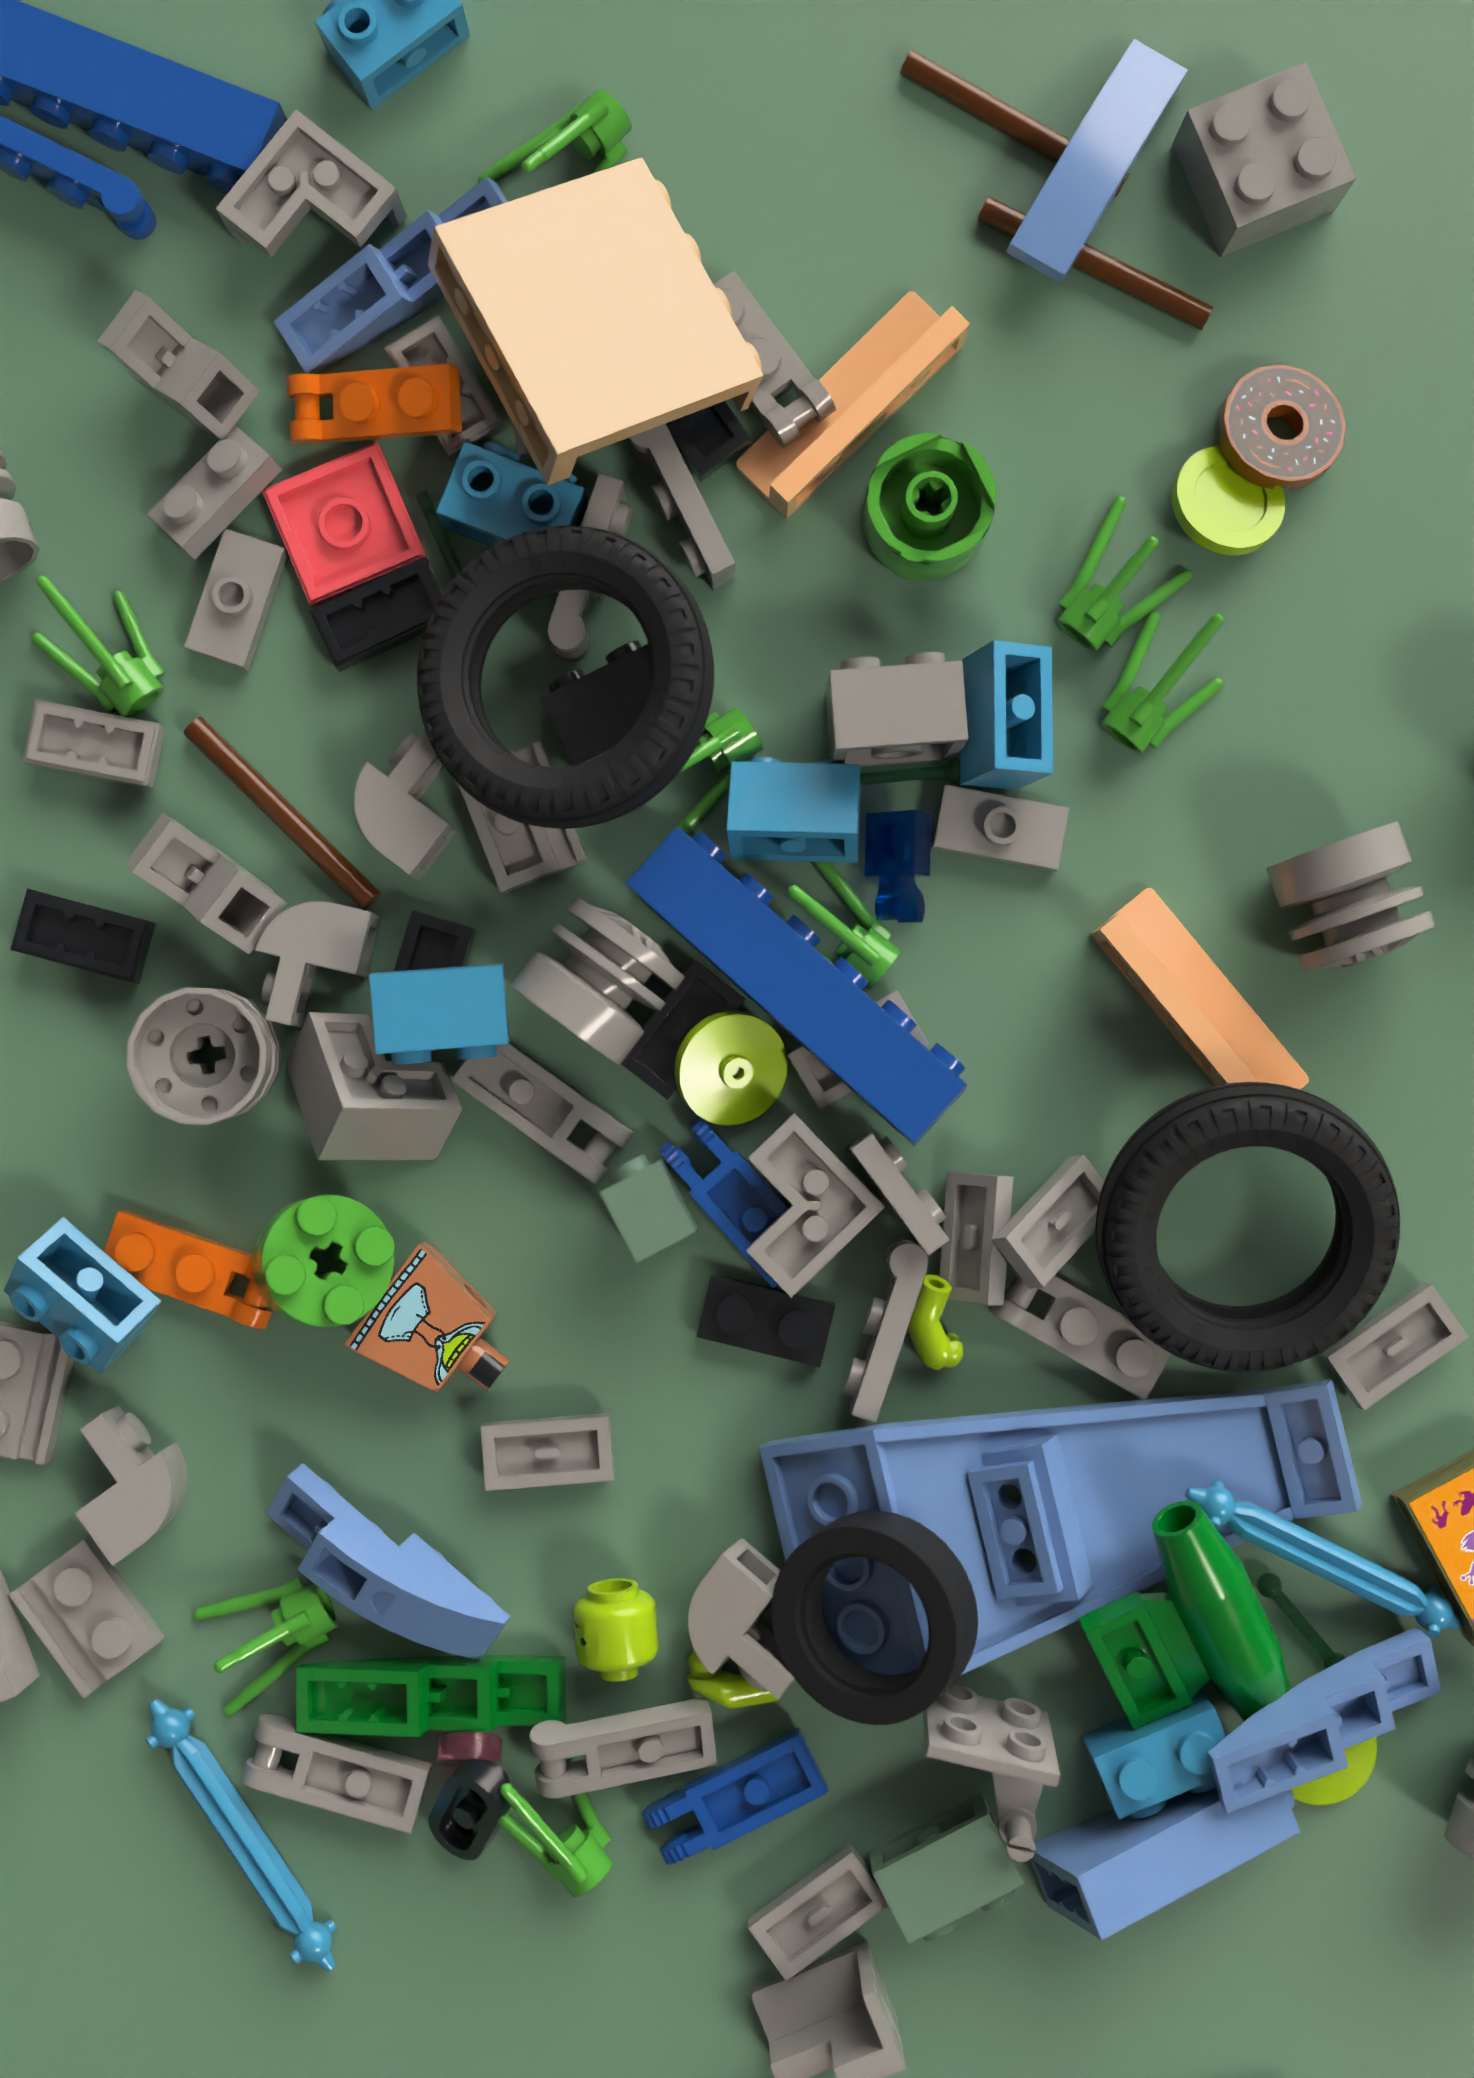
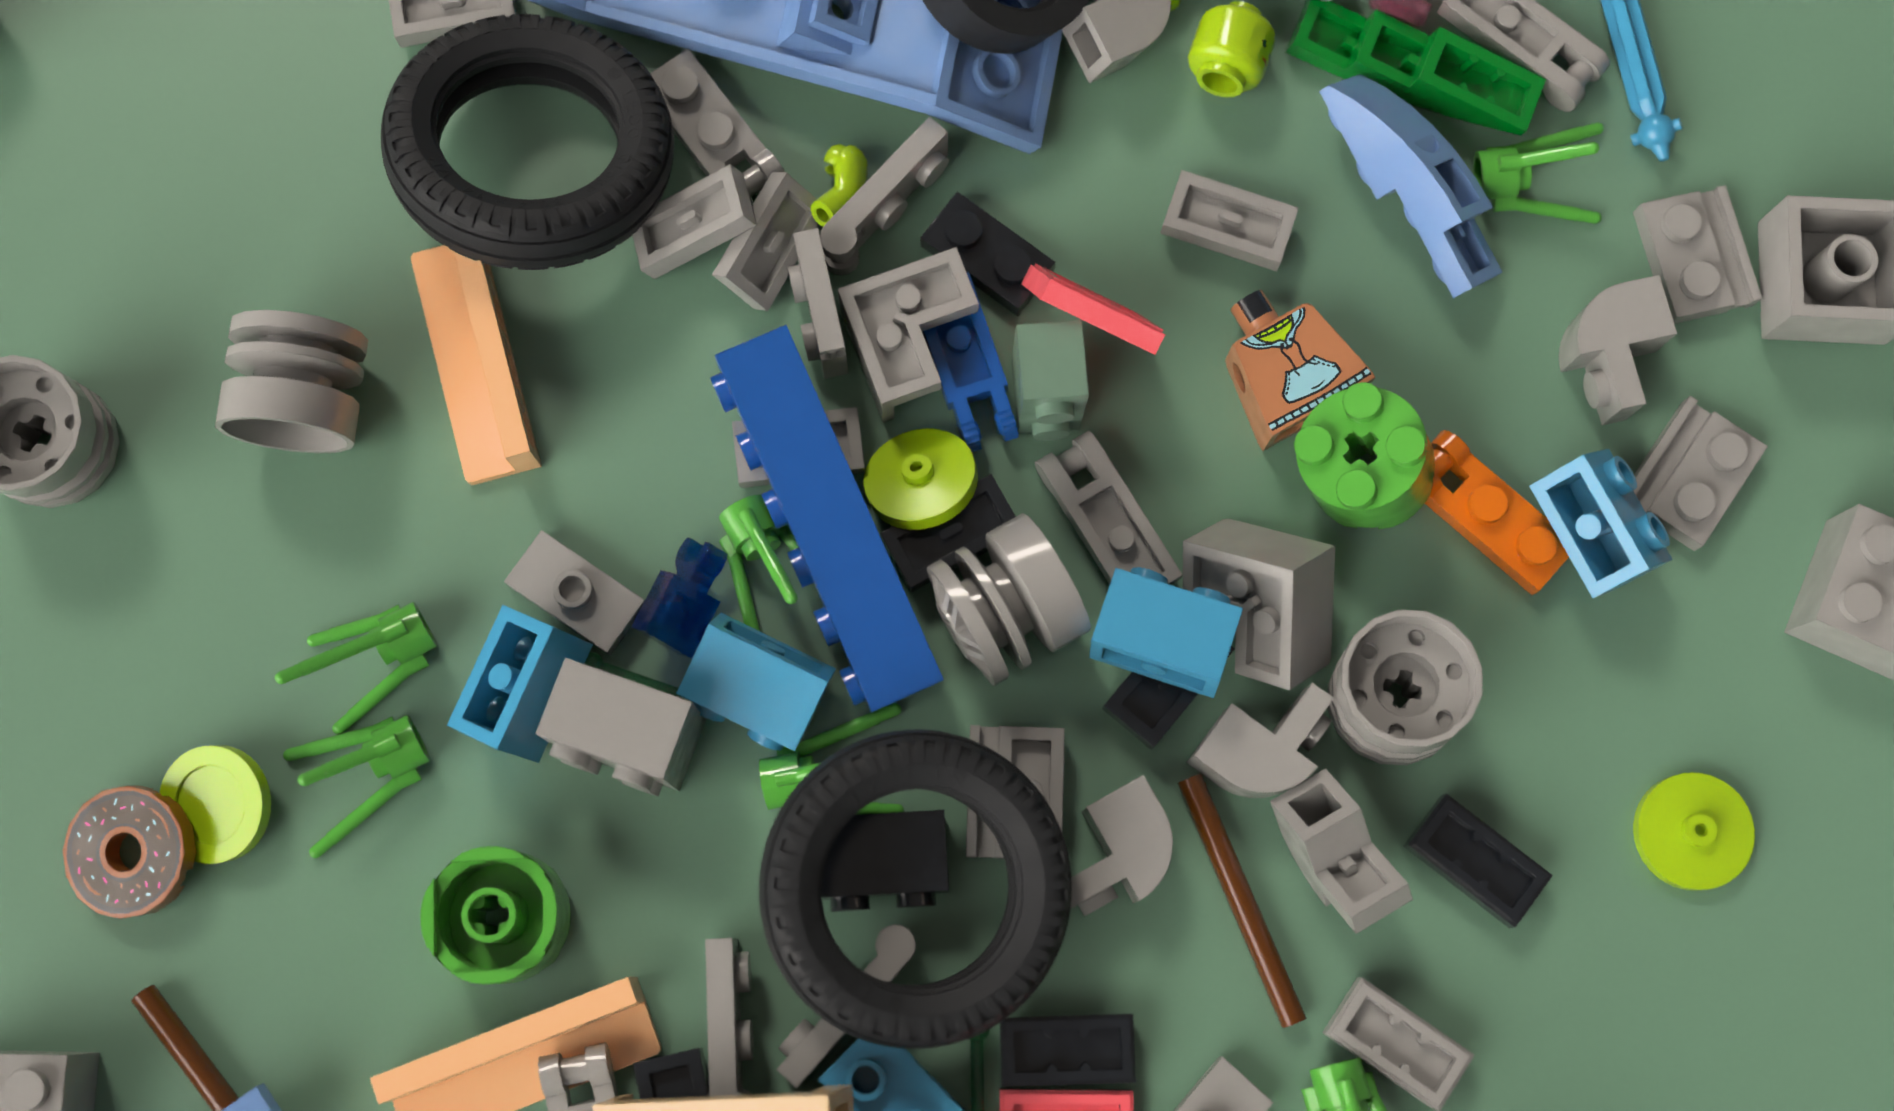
camera: 160 degrees left, 10 degrees down
(636, 1291) = (1093, 308): none -> coral tile

